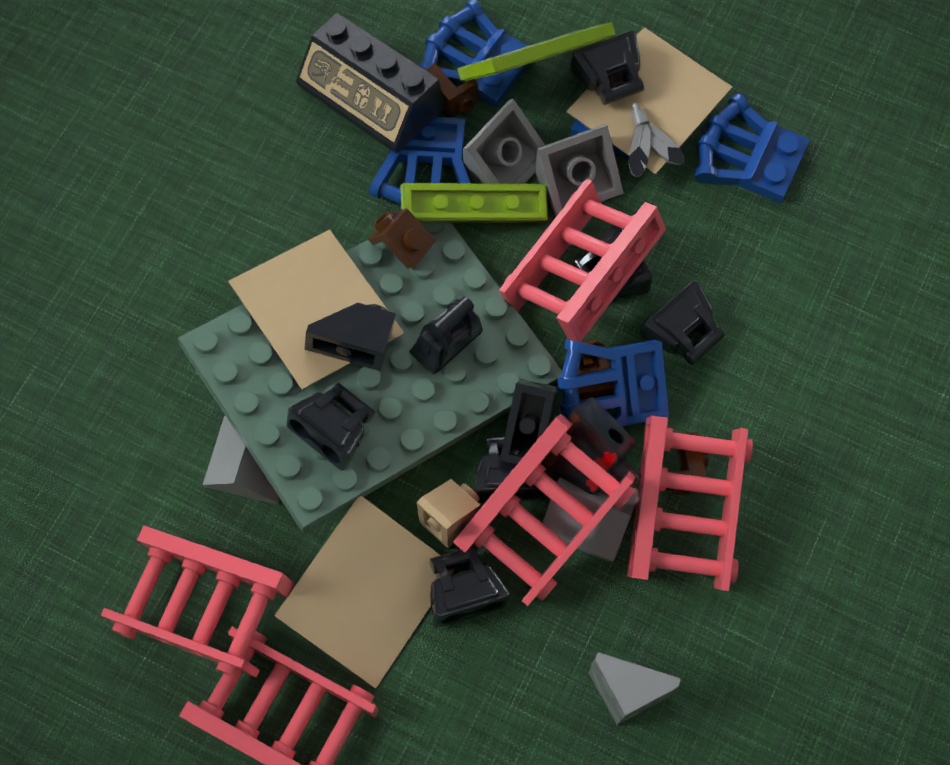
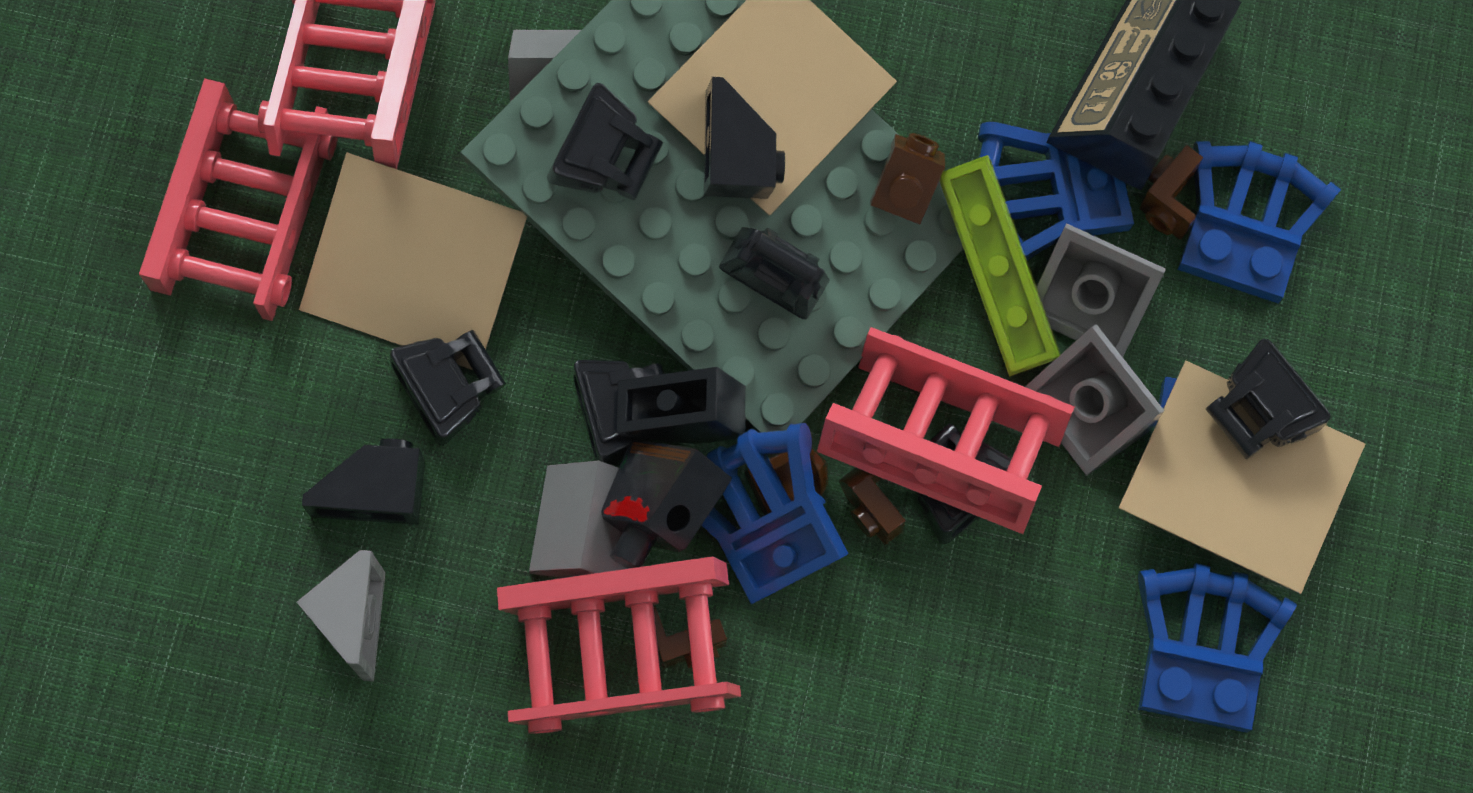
camera: 75 degrees right, 5 degrees up
(447, 510) = (538, 334): tan slope -> none
(529, 654) = (372, 485): none -> black slope
(532, 472) = (600, 417): coral fence -> none
(536, 52) = (1256, 290): lime tile -> none
(620, 323) = (872, 509): none -> reddish brown plate
(647, 137) = (1171, 478): light grey piece -> none
(679, 320) = (898, 590): black piece -> none

